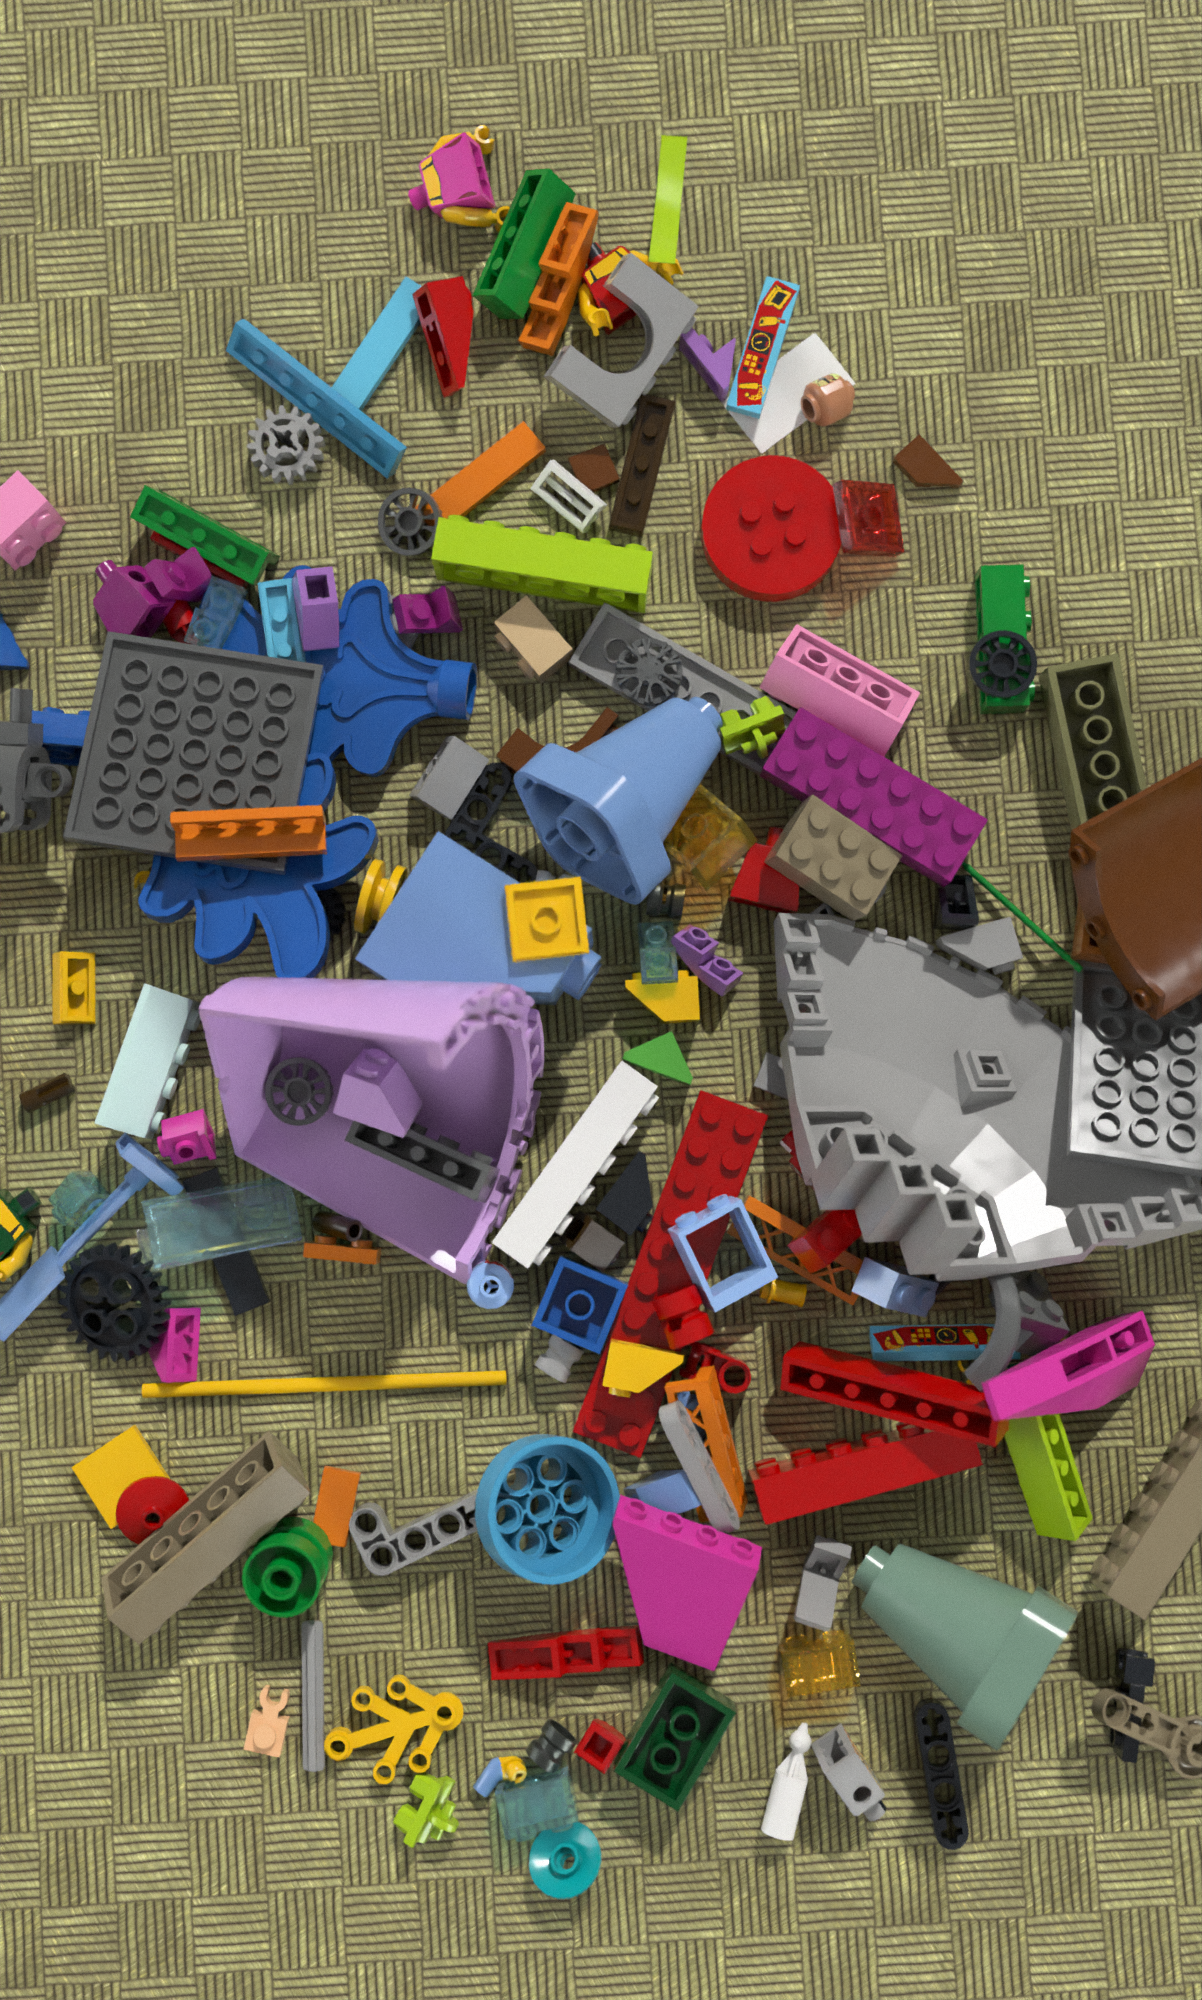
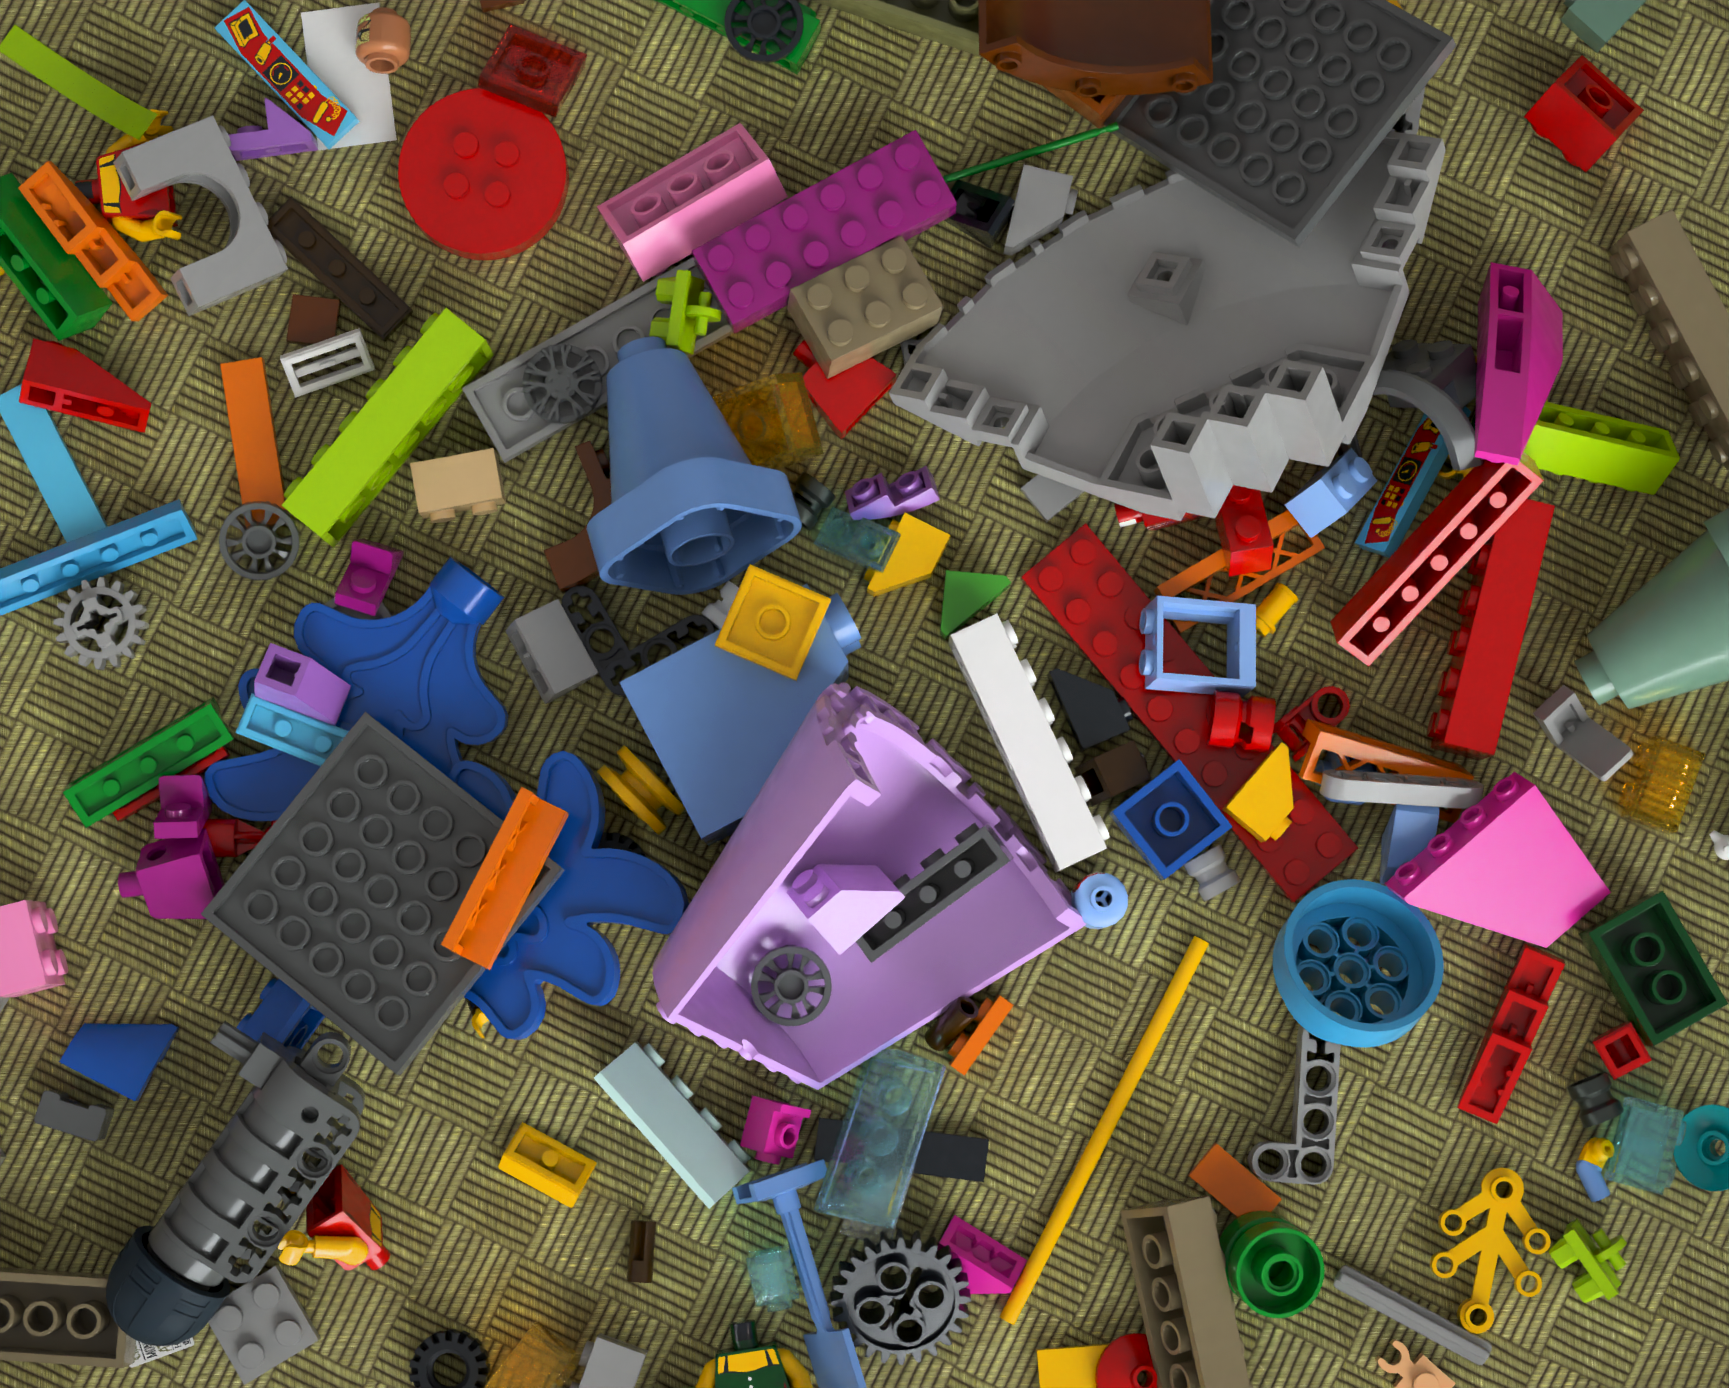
camera: 65 degrees left, 0 degrees up
(217, 615) = (242, 795): clear light blue slope -> none

